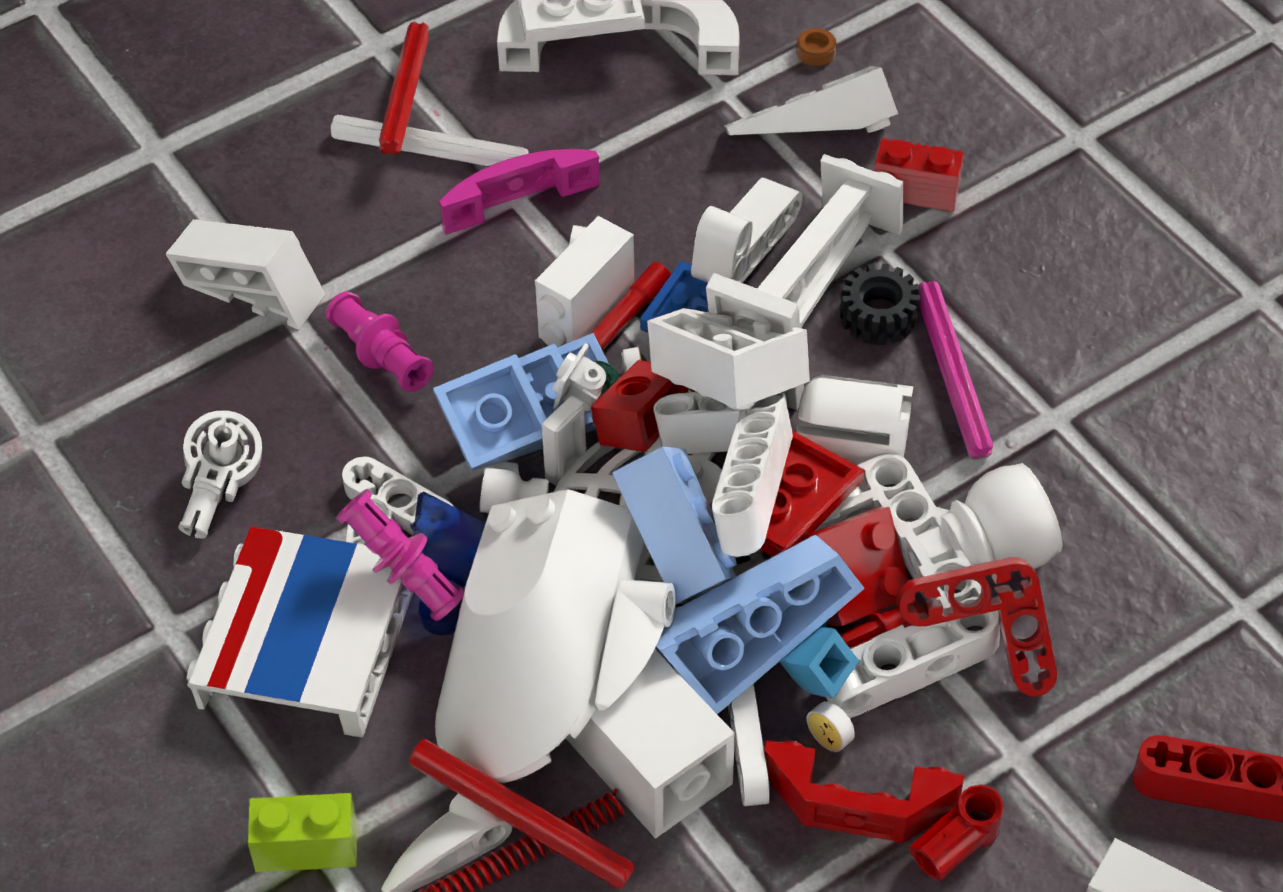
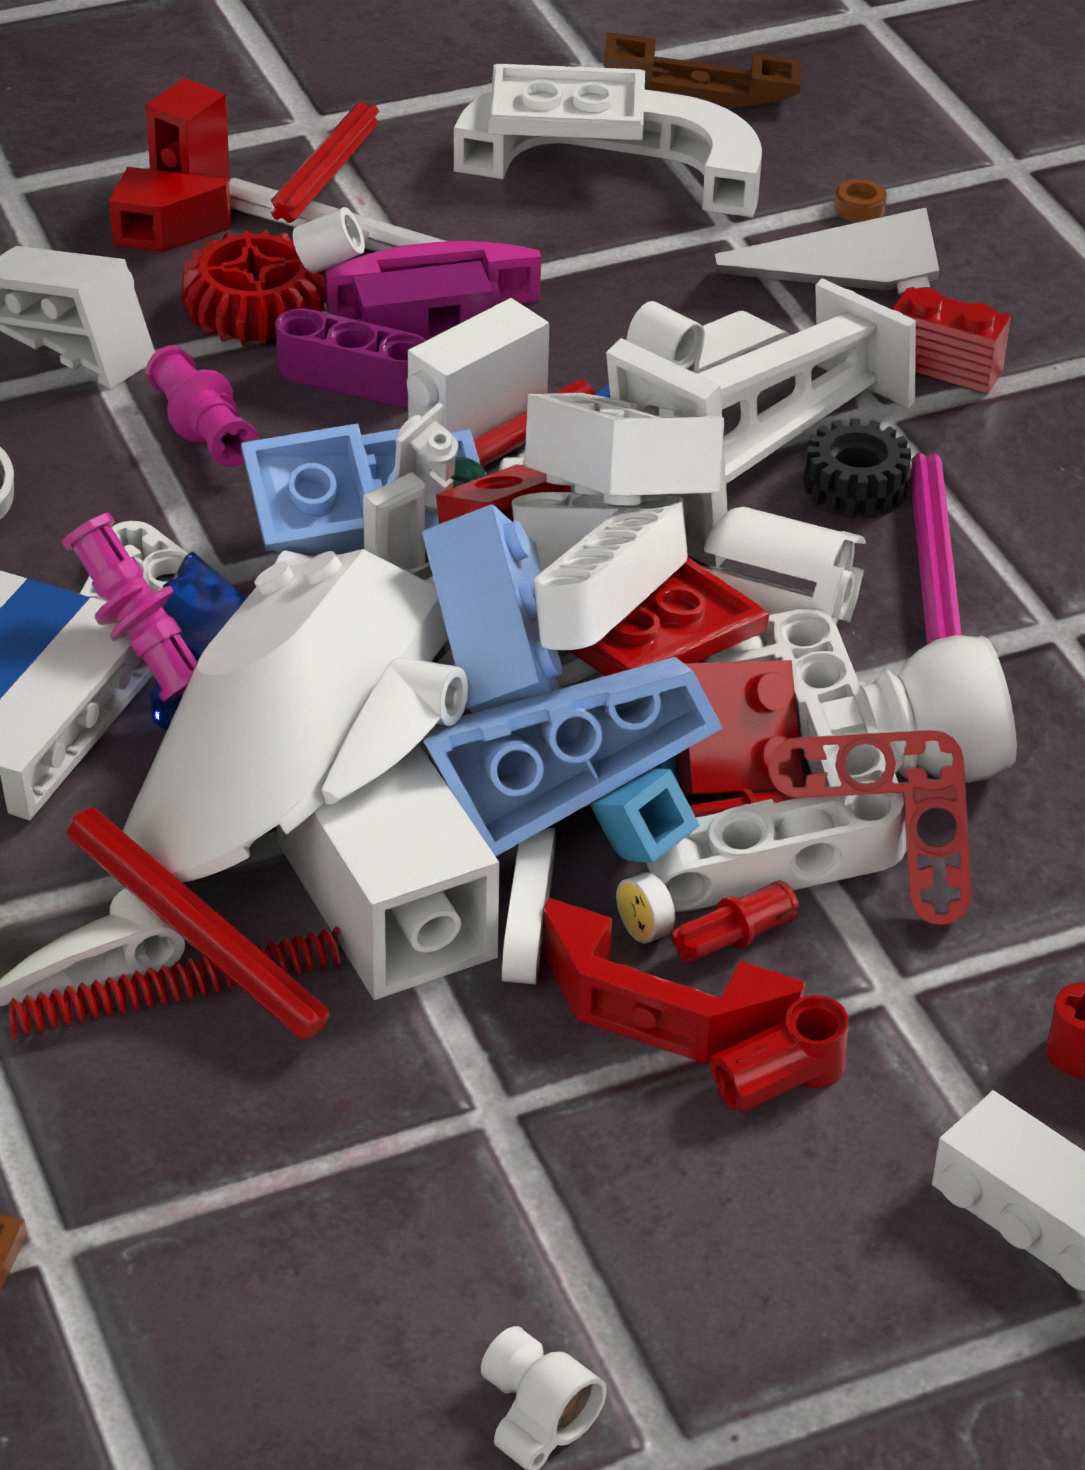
camera: 10 degrees right, 10 degrees down
(294, 154) = (167, 209): none -> red slope
(296, 95) = (189, 131): none -> red brick
(384, 218) = (246, 284): none -> red gear
(439, 177) = (329, 240): none -> white piece
(478, 272) = (344, 355): none -> magenta beam
(518, 213) = (424, 298): none -> magenta brick
(896, 724) = (736, 921): none -> red axle

